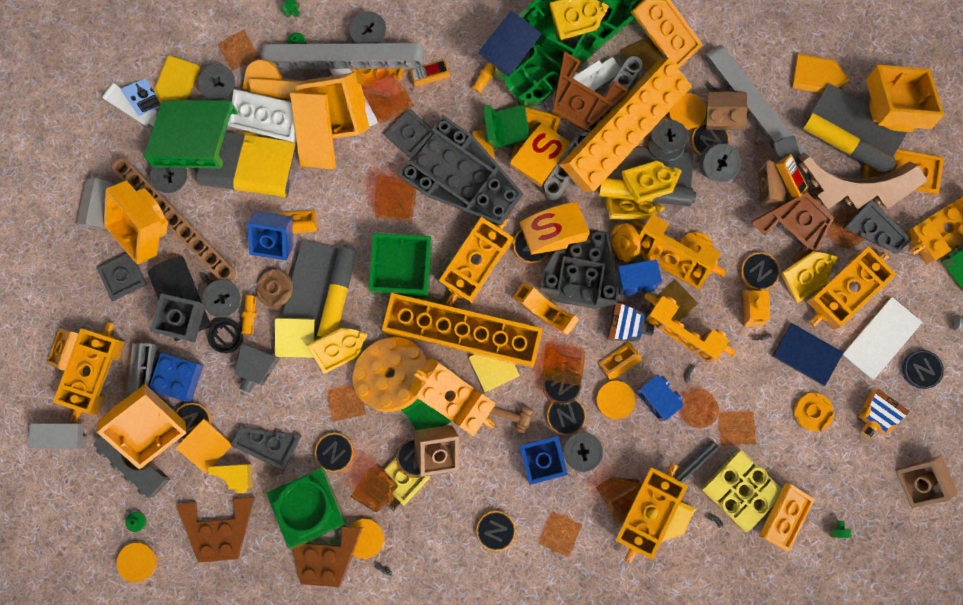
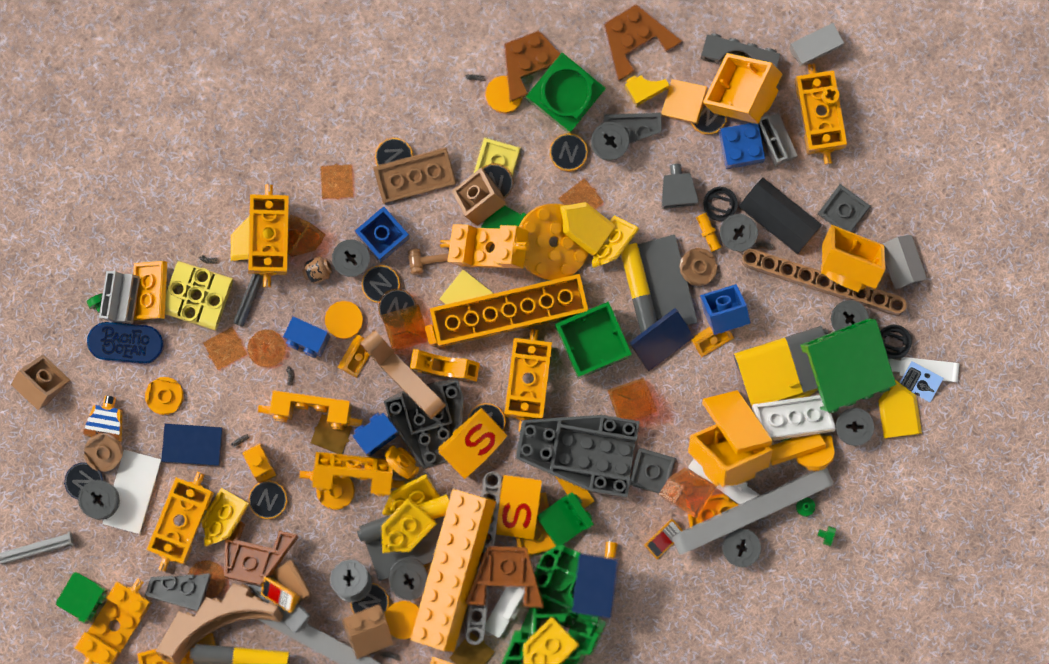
camera: 145 degrees right, 0 degrees up
(62, 349) = (855, 119): light orange tile -> none
(71, 384) = (832, 90): none -> light orange bush
(133, 139) = (907, 341): none -> black piece
(136, 521) = (709, 10): green tile -> none
(177, 318) = (763, 194): dark grey brick -> none
(238, 50) = (857, 472): clear orange piece -> none
(293, 336) = (656, 232): light yellow tile -> none
(301, 444) = (620, 137): none -> dark grey piece
(340, 238) = (661, 339): none -> dark blue tile
(353, 372) = (585, 226): none -> yellow tile
(377, 490) = (513, 138): clear orange torso -> none
(485, 502) = (414, 175): none -> medium nougat tile
(543, 345) = (430, 332): none -> light orange tile
(598, 349) = (402, 374): none -> medium nougat beam
(618, 457) = (317, 270): none -> medium nougat head
(628, 324) = (364, 390): torso -> none
(819, 525) = (119, 297): none -> light grey piece
(829, 479) = (125, 343): none -> tile
(896, 385) = (103, 452): none -> medium nougat tile
(930, 340) = (88, 504): none -> dark grey piece

